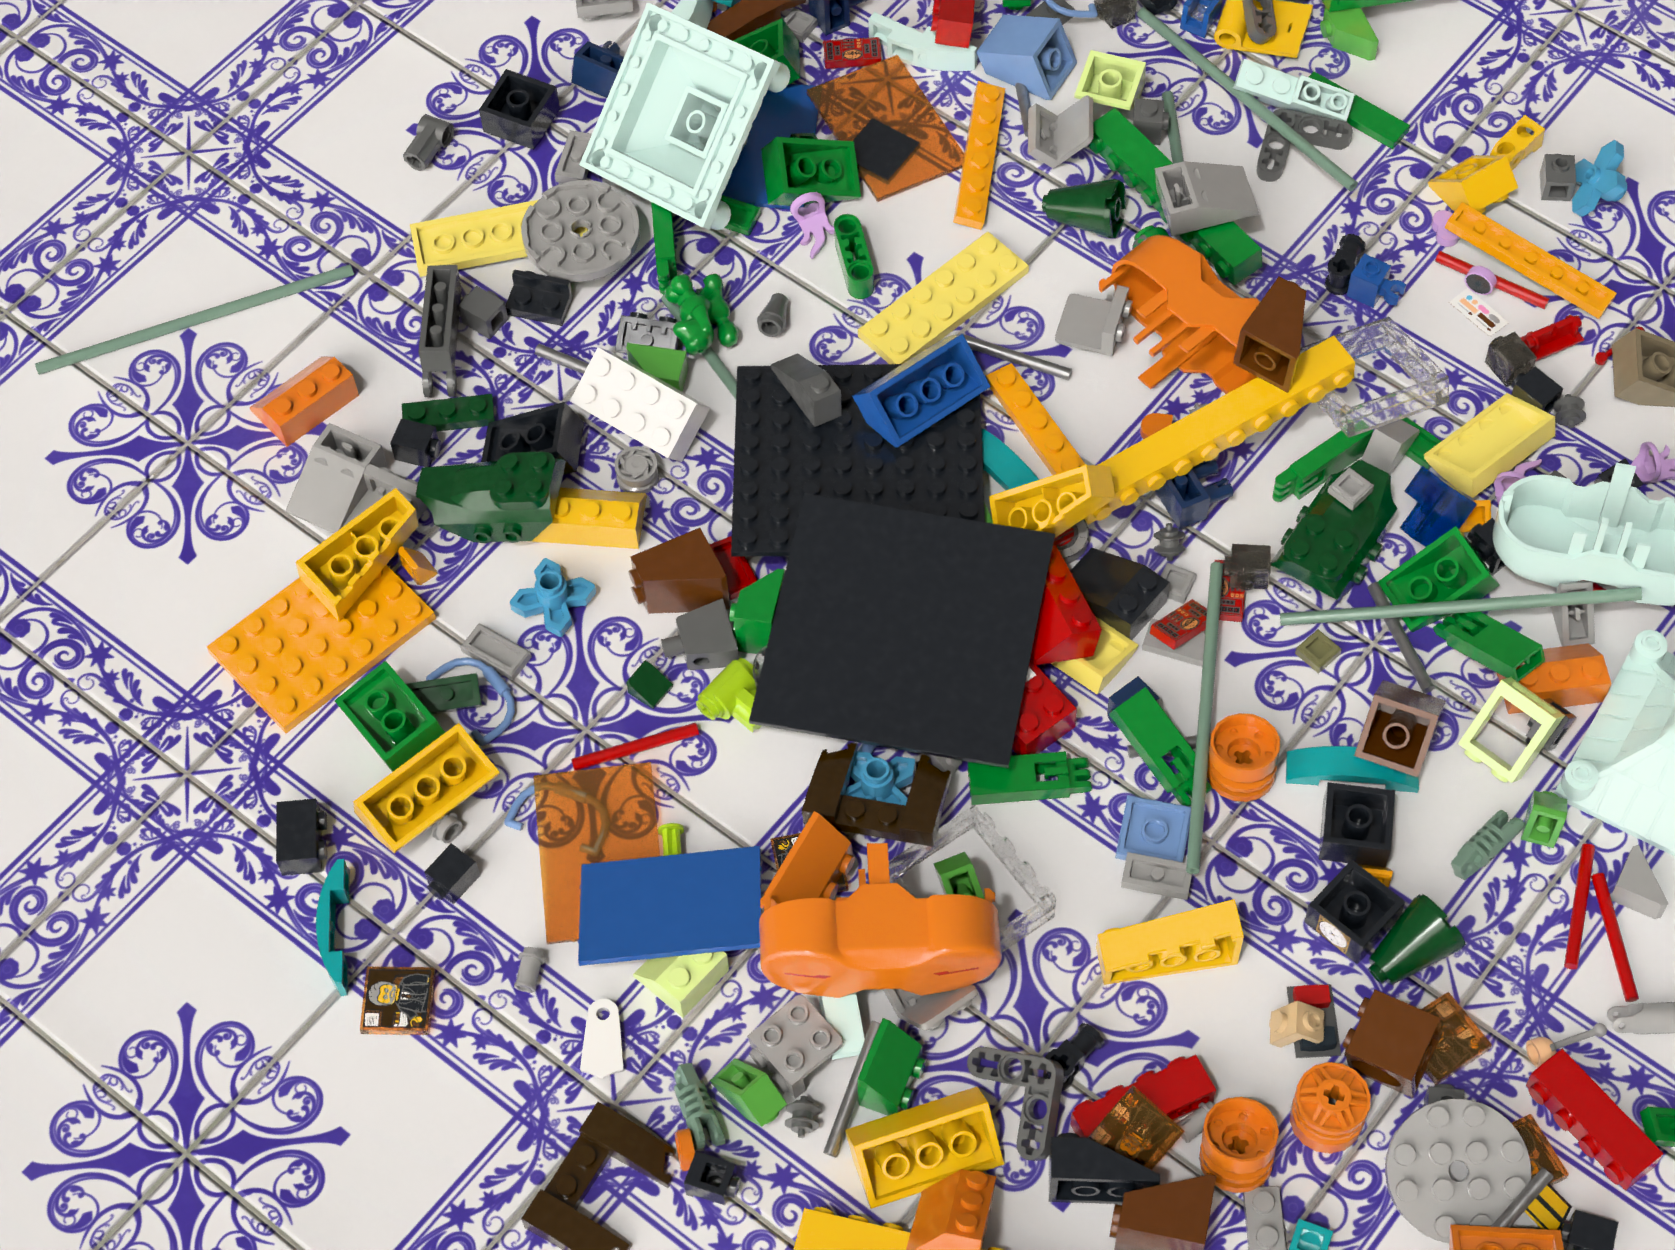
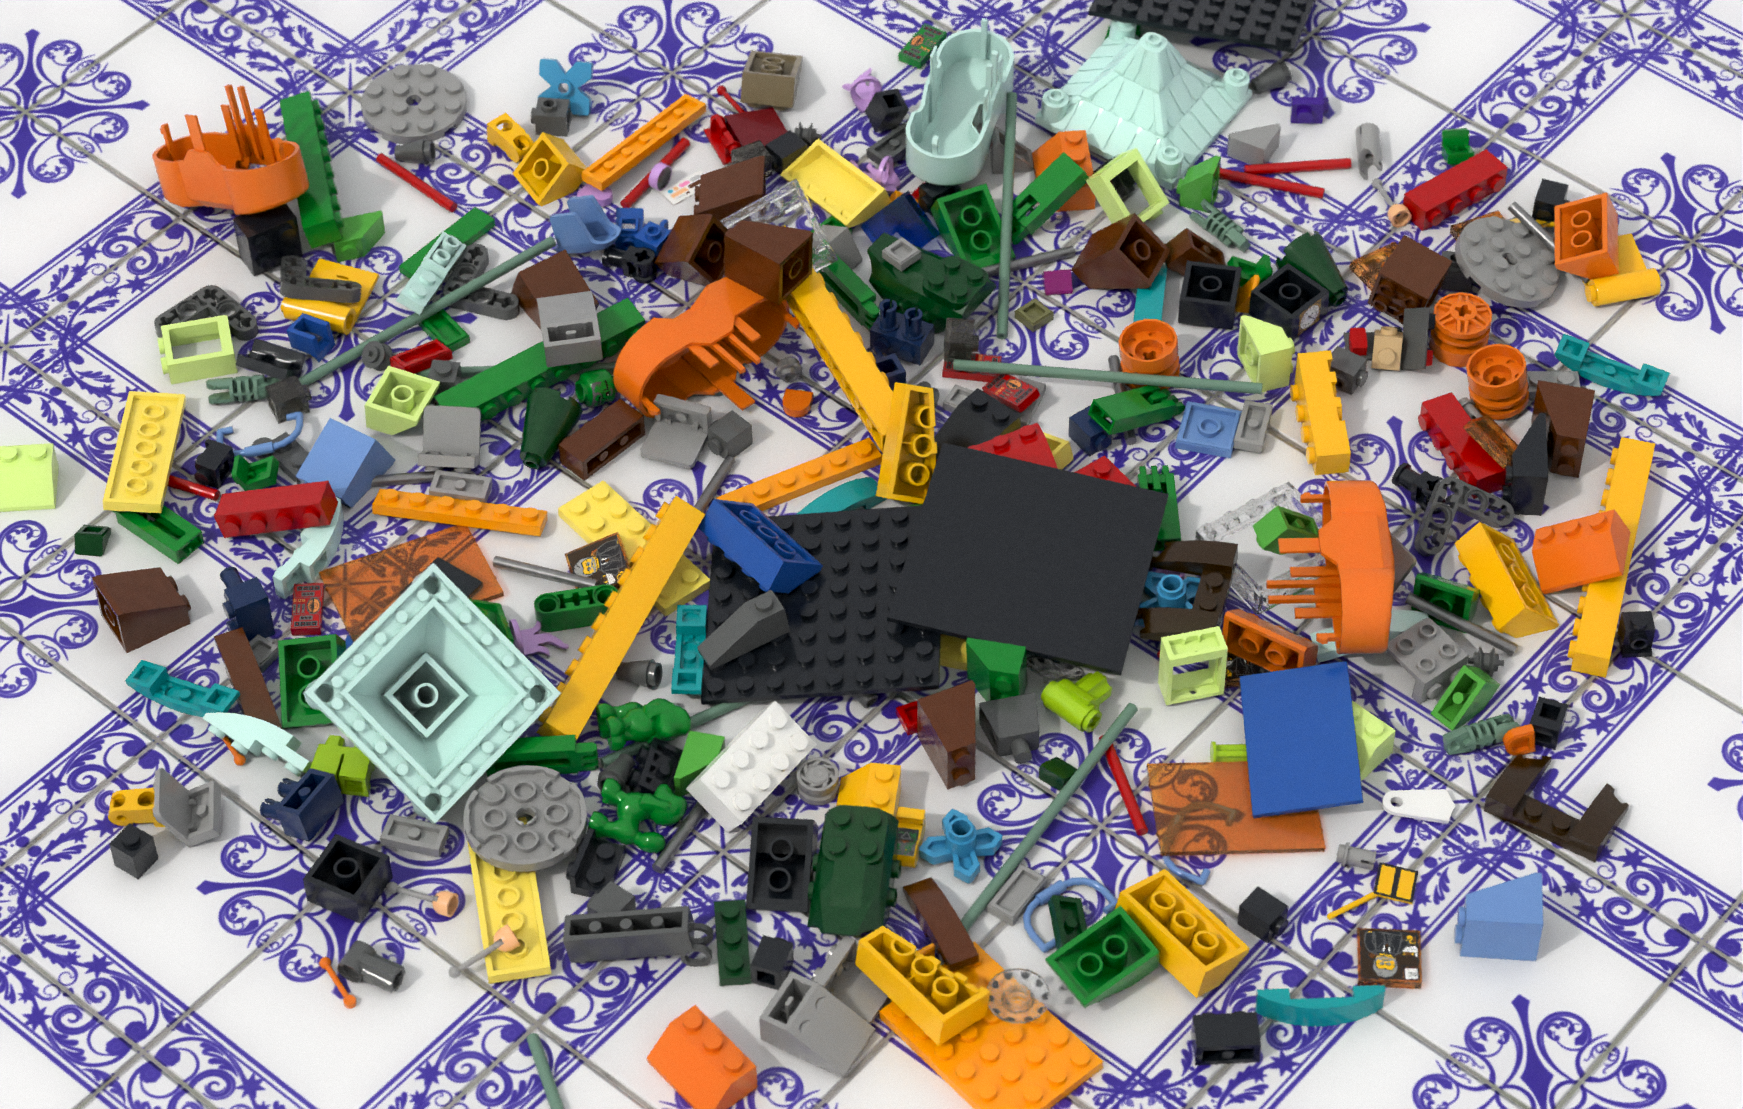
camera: 90 degrees left, 10 degrees down
(345, 629) = (1018, 985): none -> clear dish
(401, 134) = (349, 1000): none -> orange hinge
(415, 1109) = (1502, 920): none -> medium blue slope
(439, 224) = (503, 940): none -> hinge
(452, 578) = (941, 924): none -> reddish brown slope
(498, 1010) = (1391, 883): none -> piece
(500, 188) = (443, 902): none -> hinge
(567, 550) = (910, 834): none -> yellow leg
(584, 672) = (1048, 816): none -> sand green piece
(593, 315) = (632, 809): none -> green animal
(644, 302) = (618, 770): none -> dark grey cone
(758, 351) = (688, 662): none -> teal slope
(764, 792) = (1189, 649): none -> yellowish green window
(823, 284) = (622, 620): none -> yellow brick
(898, 228) = (544, 573): none -> flat silver bar
(905, 269) = (600, 560): none -> tile
(1010, 151) = (460, 486): none -> light grey plate
(1077, 255) = (601, 439): none -> reddish brown brick
(1096, 367) = (729, 435): none -> dark grey brick
(1180, 63) = (376, 355): none -> dark grey wheel
(1184, 102) = (421, 357): none -> red tile
(1228, 121) = (446, 330): none -> green tile
(1253, 976) = (1349, 370): none -> dark grey brick
(1256, 878) = (1265, 353): none -> yellowish green slope
(1260, 512) = (902, 333): none -> dark blue brick
(1284, 198) = (548, 278): none -> reddish brown slope
(1317, 1052) = (1415, 338): none -> dark grey piece
(1345, 309) = (694, 249): none -> reddish brown slope
(1367, 213) = (584, 227): none -> medium blue piece
(1373, 670) = (1057, 282): none -> magenta slope
(1395, 254) = (631, 222): none -> blue window
(1409, 872) = (1249, 269): none -> green bracket
(1428, 814) = (1191, 247): none -> reddish brown slope
(1449, 69) = (416, 182): none -> red bar
(1453, 343) = (731, 188): none -> reddish brown slope
(1484, 70) = (419, 152): none -> dark grey cone
(1573, 364) = (755, 126): none -> dark red tile
(1588, 48) = (436, 90): none -> light grey plate

